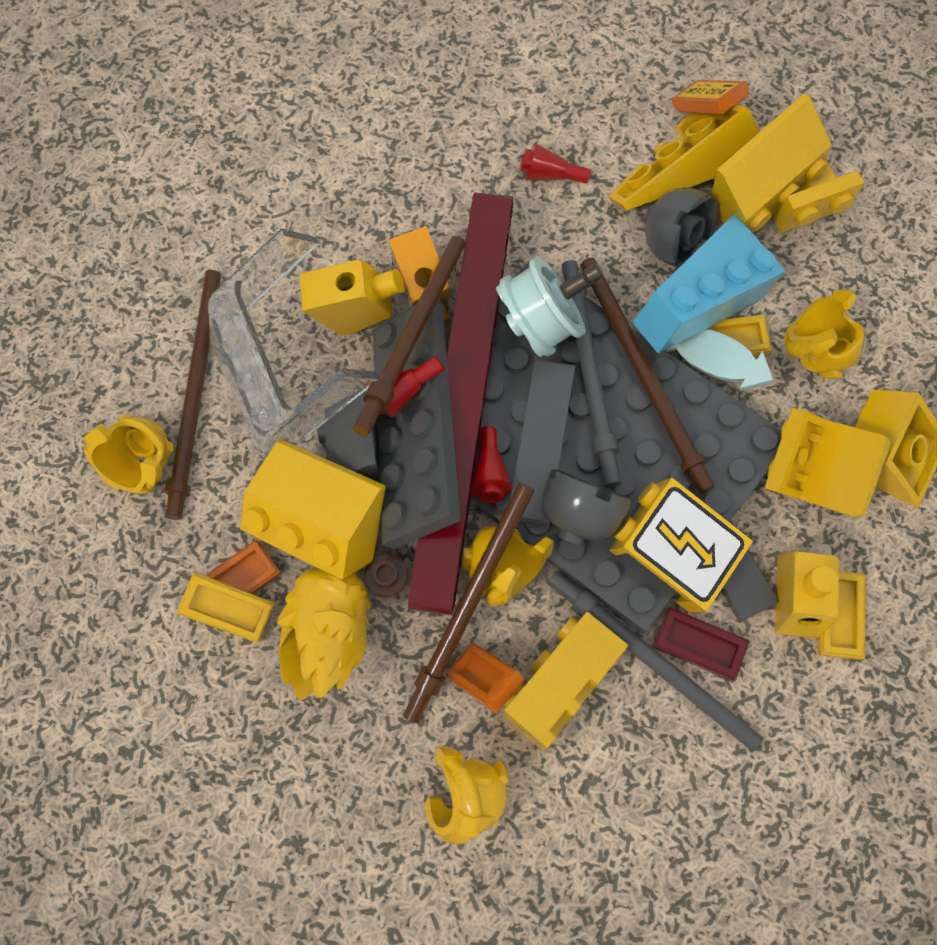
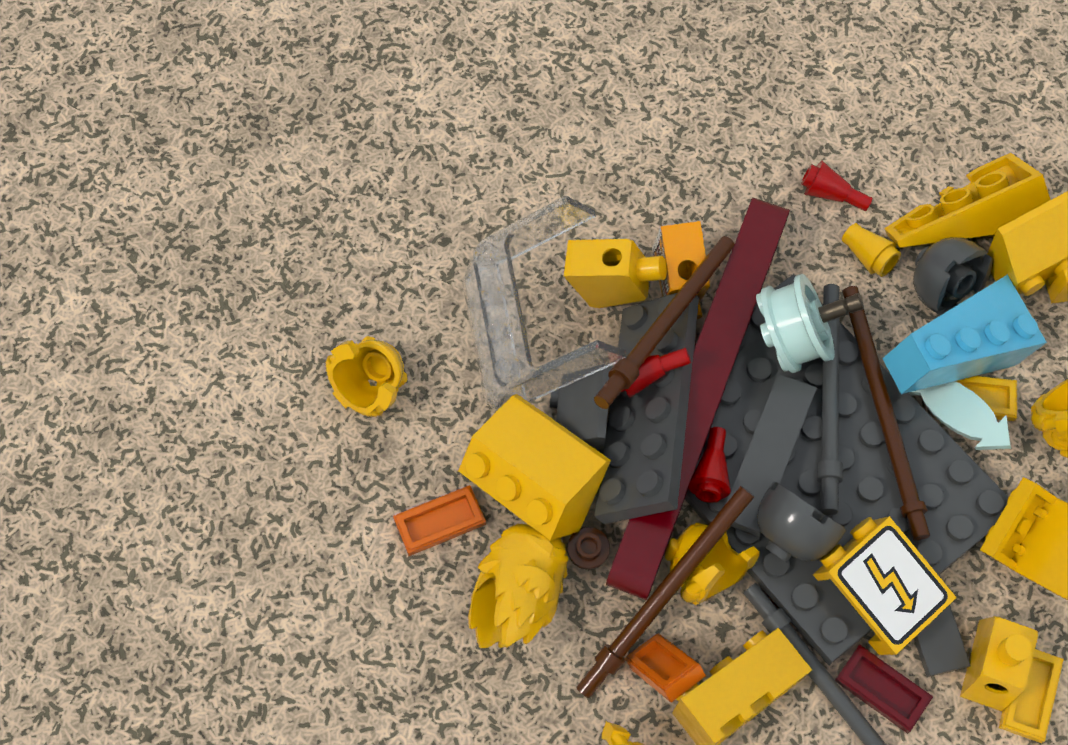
camera: 10 degrees right, 5 degrees down
(178, 487) = (403, 418): reddish brown bar -> none
(225, 607) = (428, 542): yellow tile -> none
(601, 219) = (872, 250): none -> yellow cone
(711, 96) = (1008, 153): orange tile -> none

